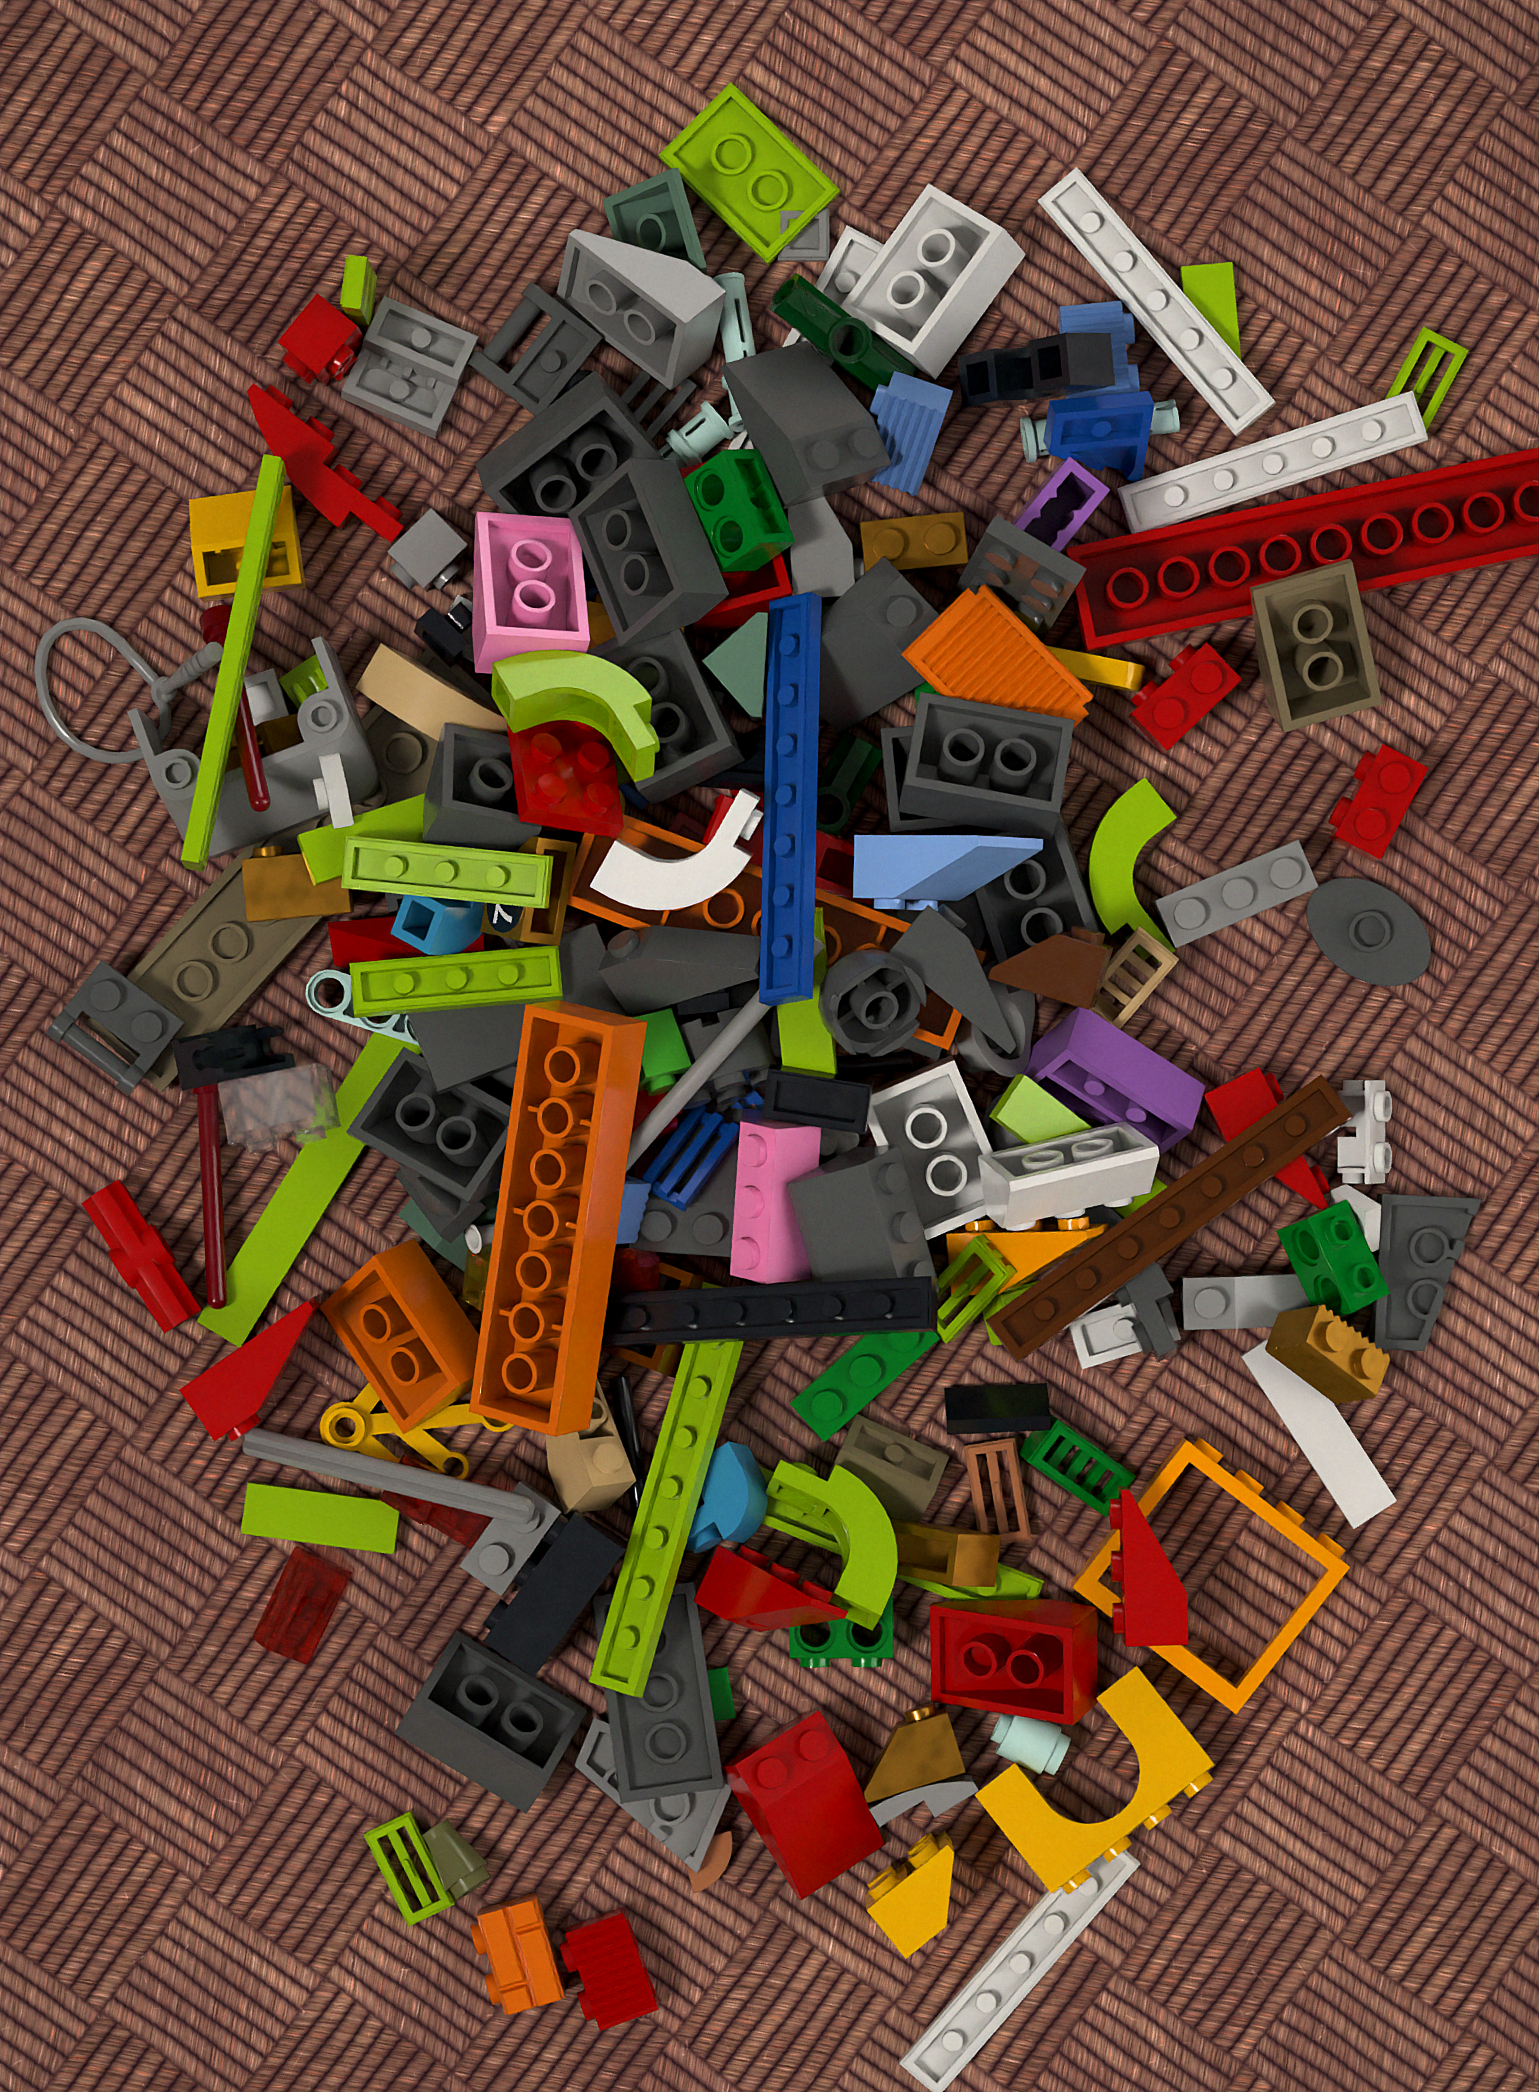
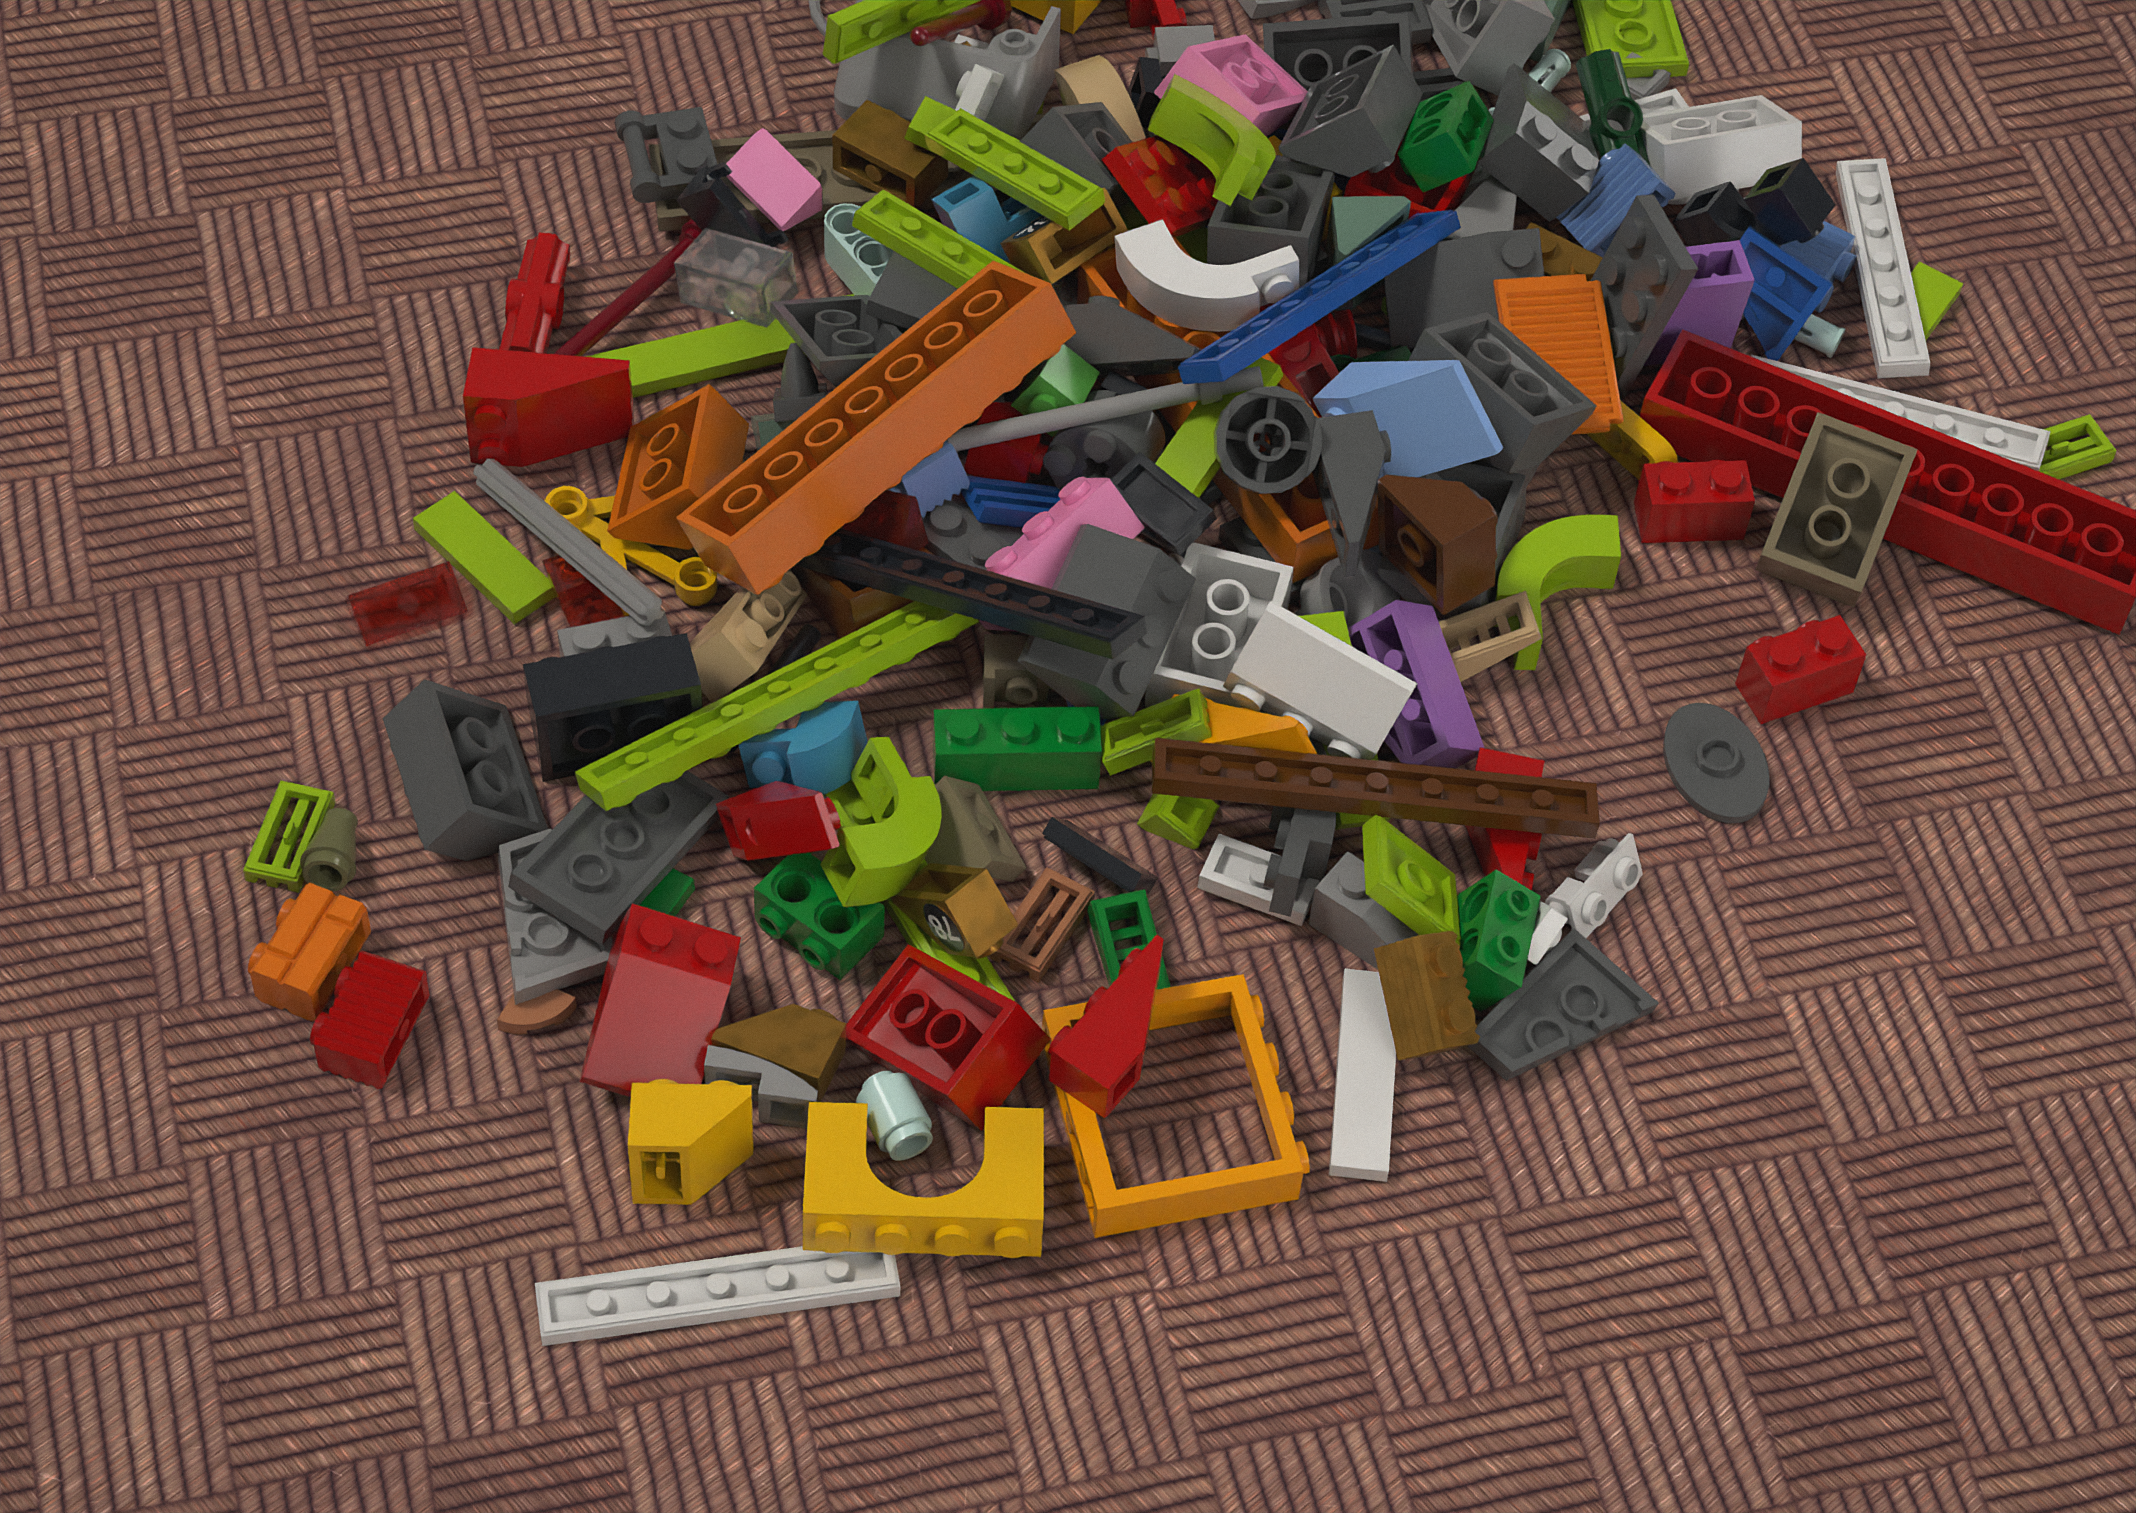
camera: 35 degrees right, 35 degrees down
(225, 989) = (775, 181): none -> bright pink slope
(1235, 894) = (1624, 648): light grey brick -> none
(1249, 1269) = (1408, 880): none -> lime tile

